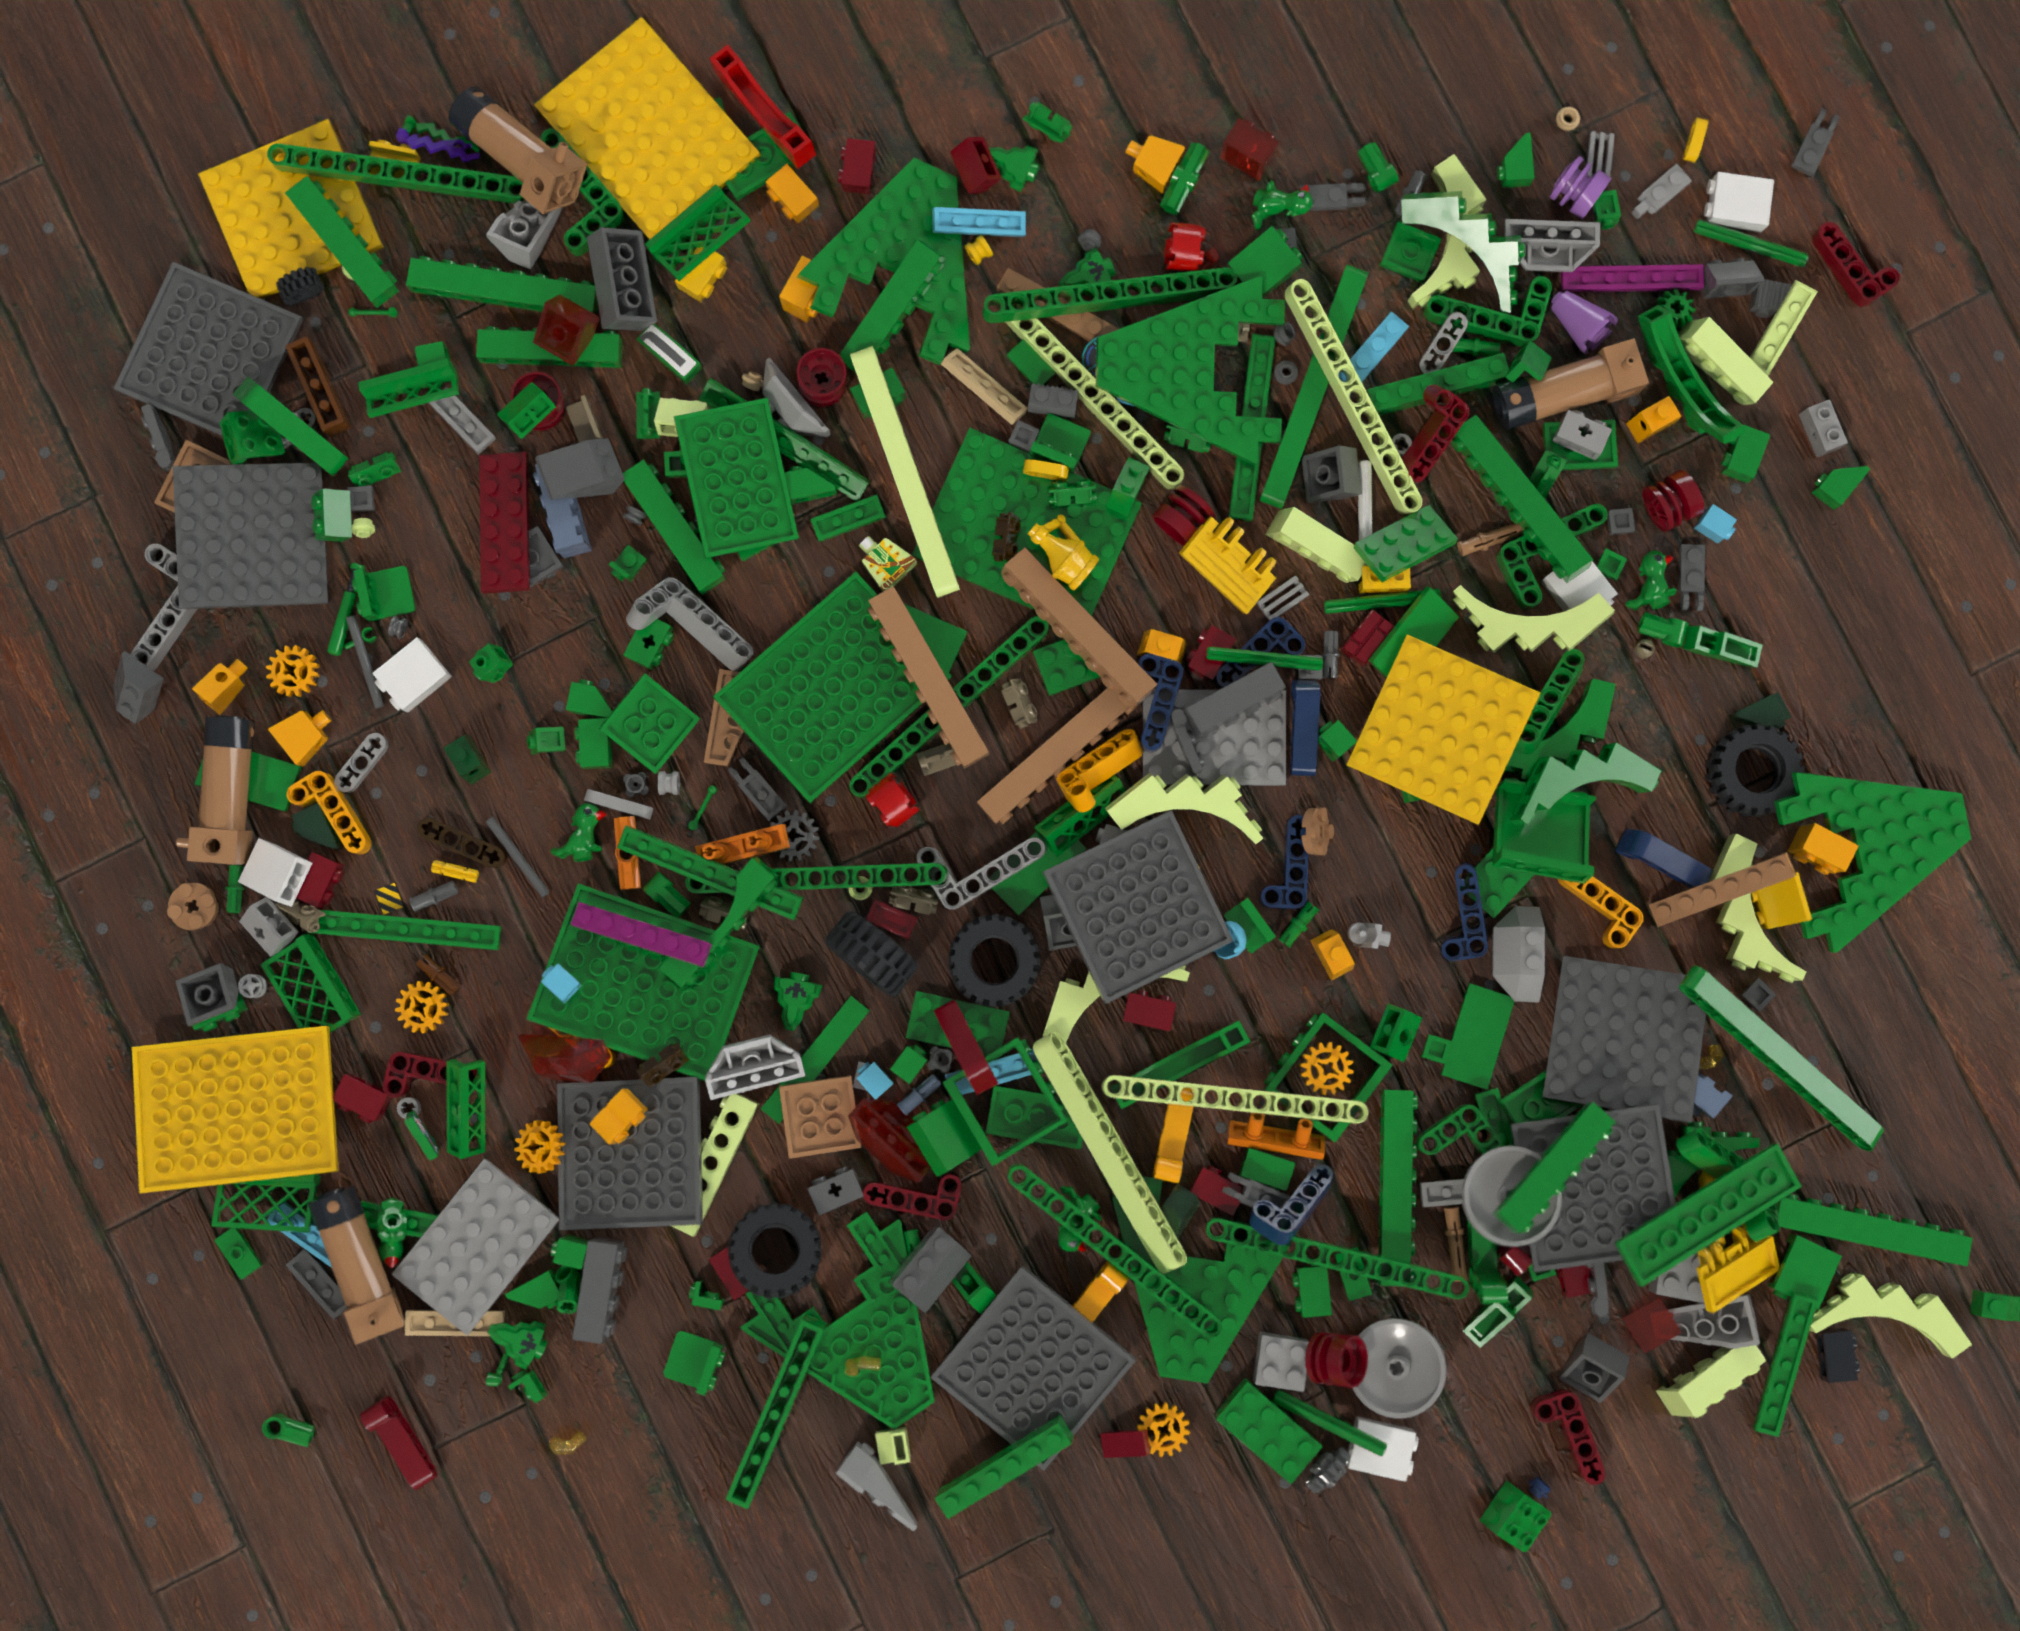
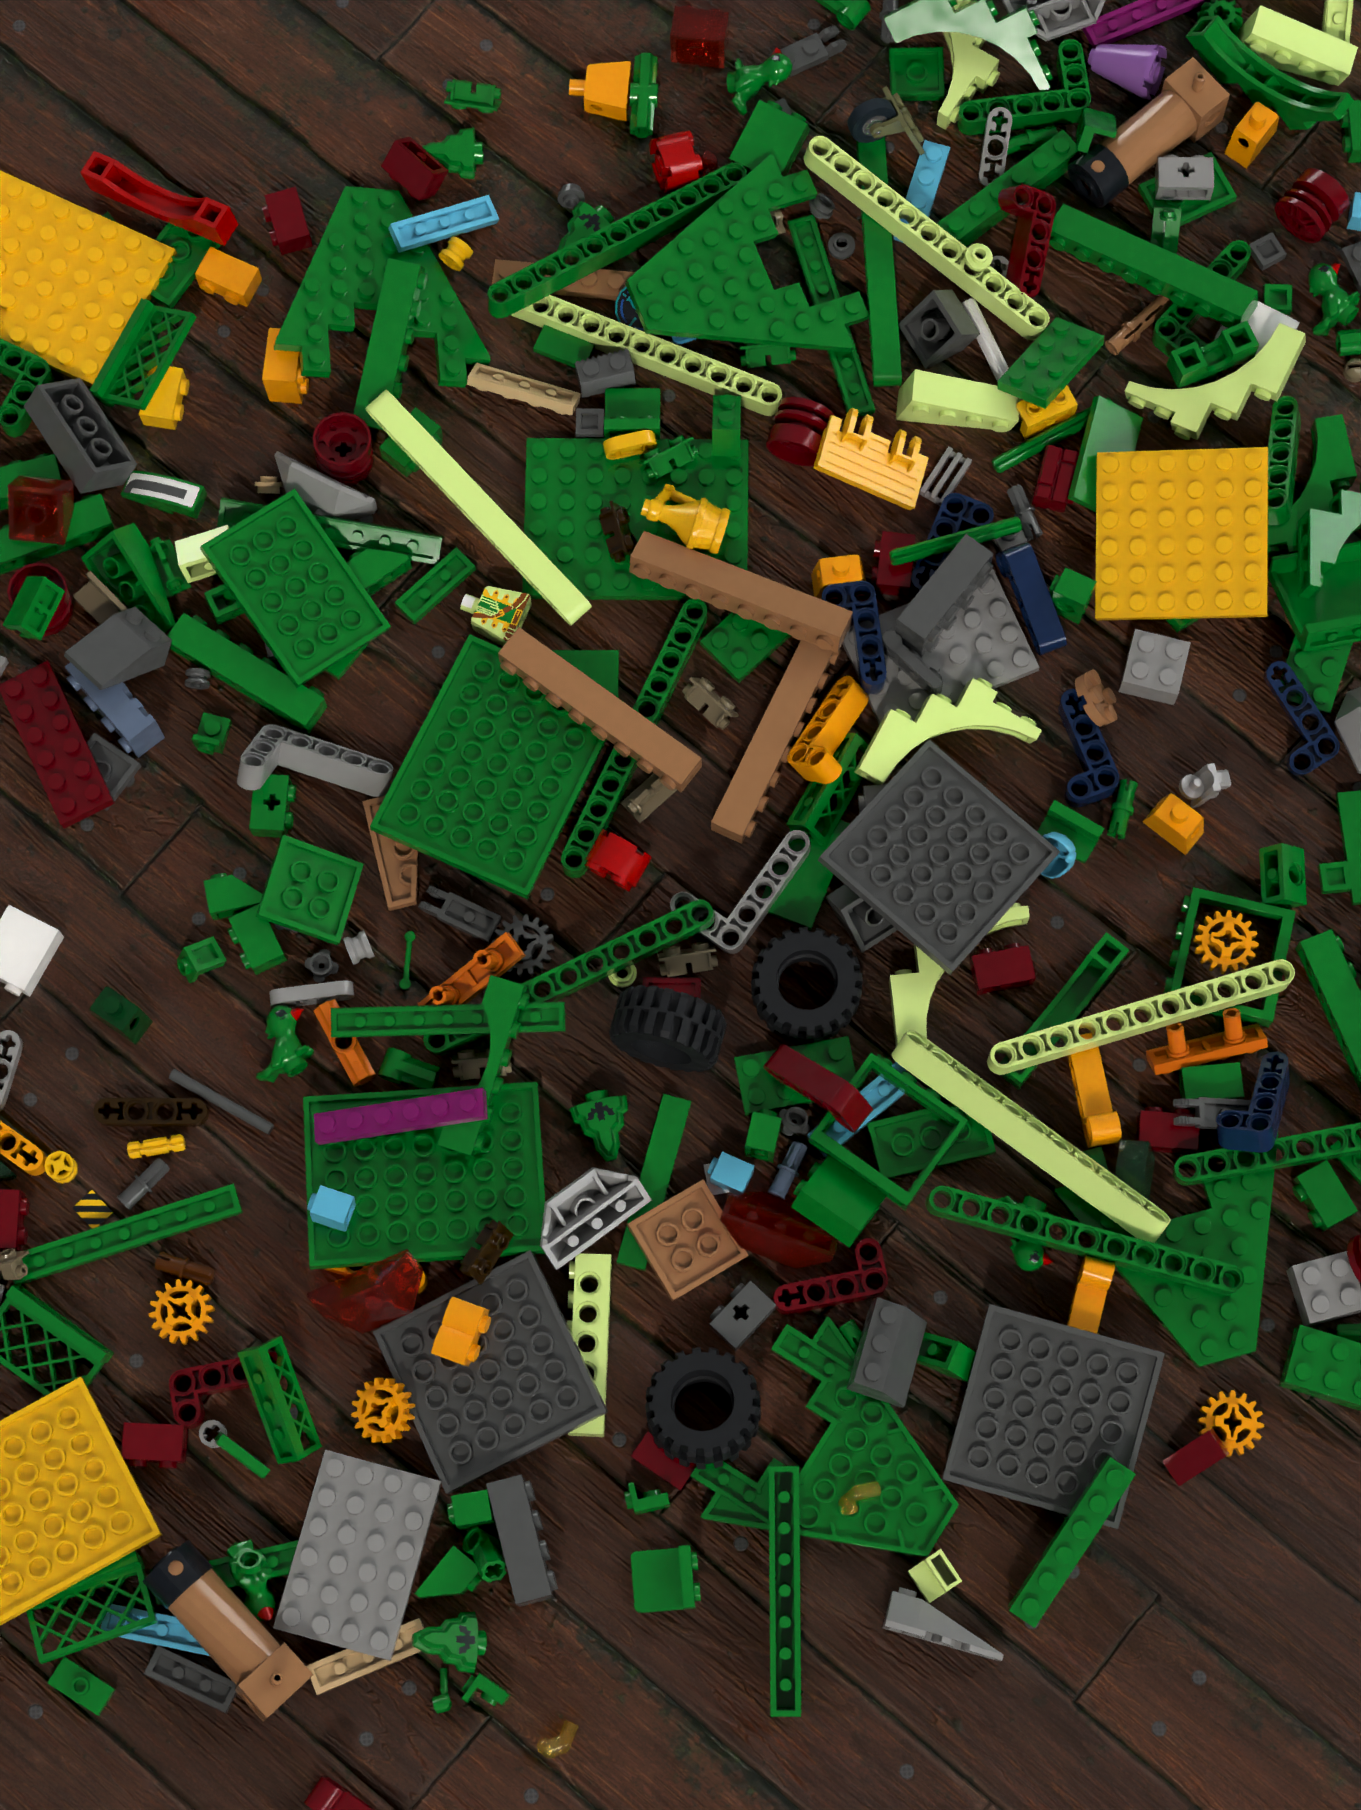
camera: 20 degrees left, 10 degrees down
(373, 854) = (56, 1163): none -> yellow wheel
(490, 663) = (103, 900): green brick -> none
(617, 404) = (129, 572): none -> green wedge
(1364, 284) = (881, 118): none -> plate
(1374, 824) = (1154, 667): none -> light grey brick
(1380, 436) = (975, 263): none -> yellowish green plate
(1522, 595) = (1228, 350): none -> green arch

